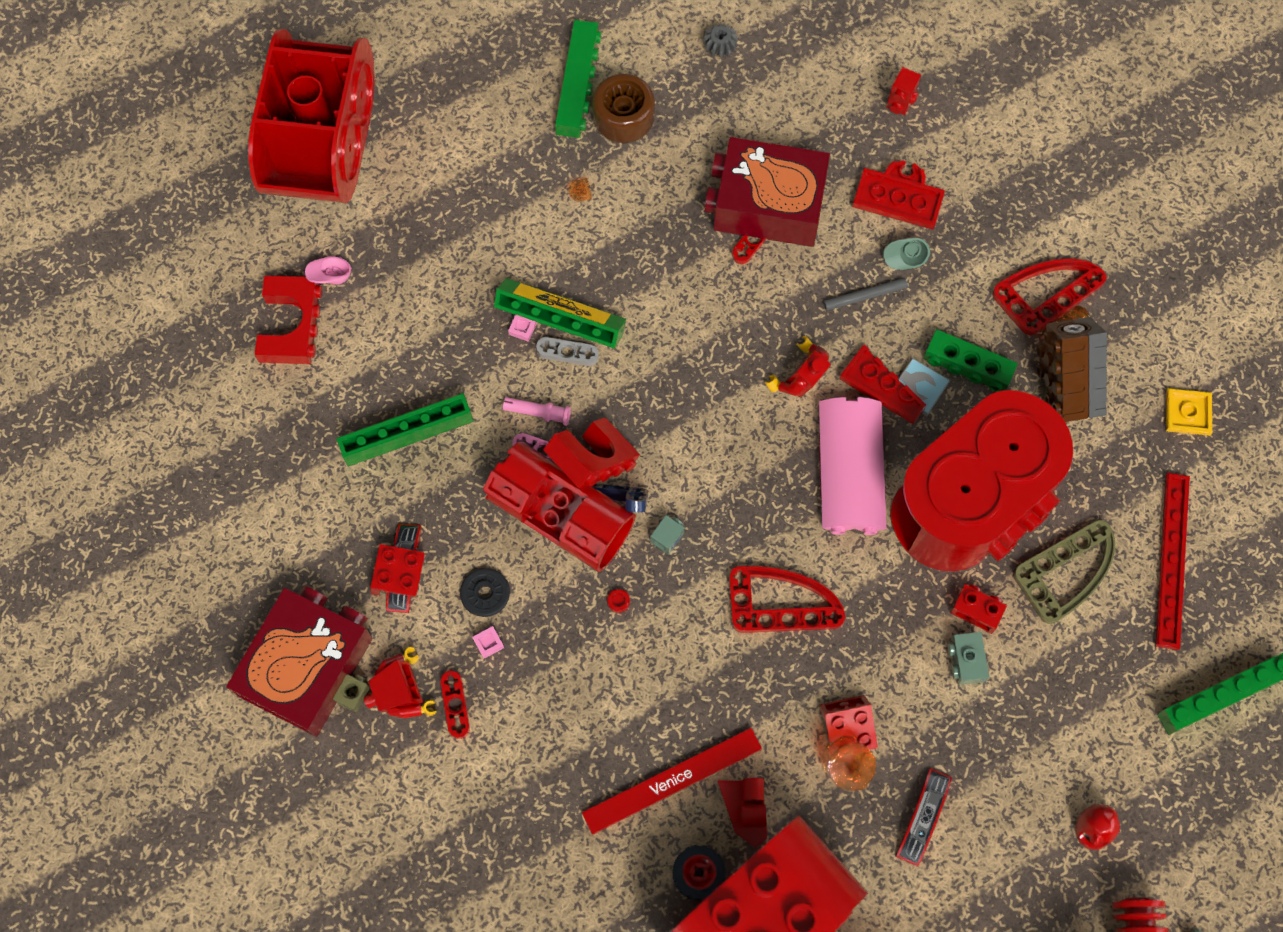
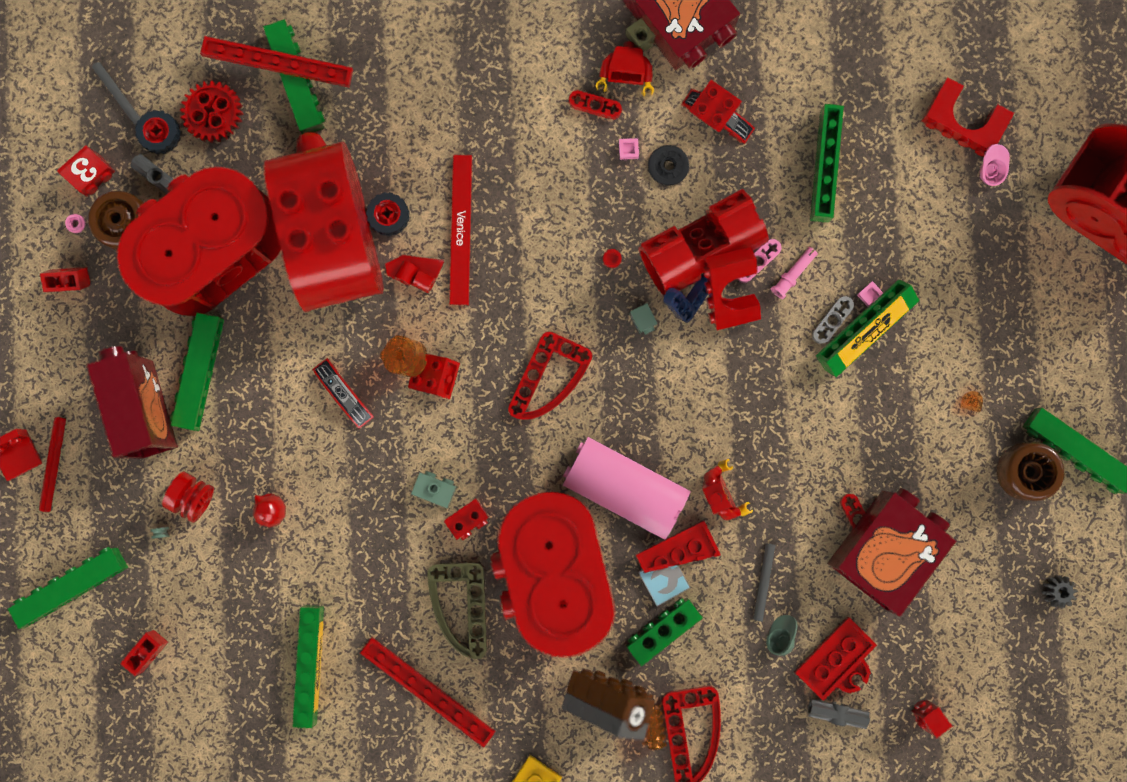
camera: 115 degrees right, 15 degrees up
(948, 172) = (838, 714): none -> dark grey piece

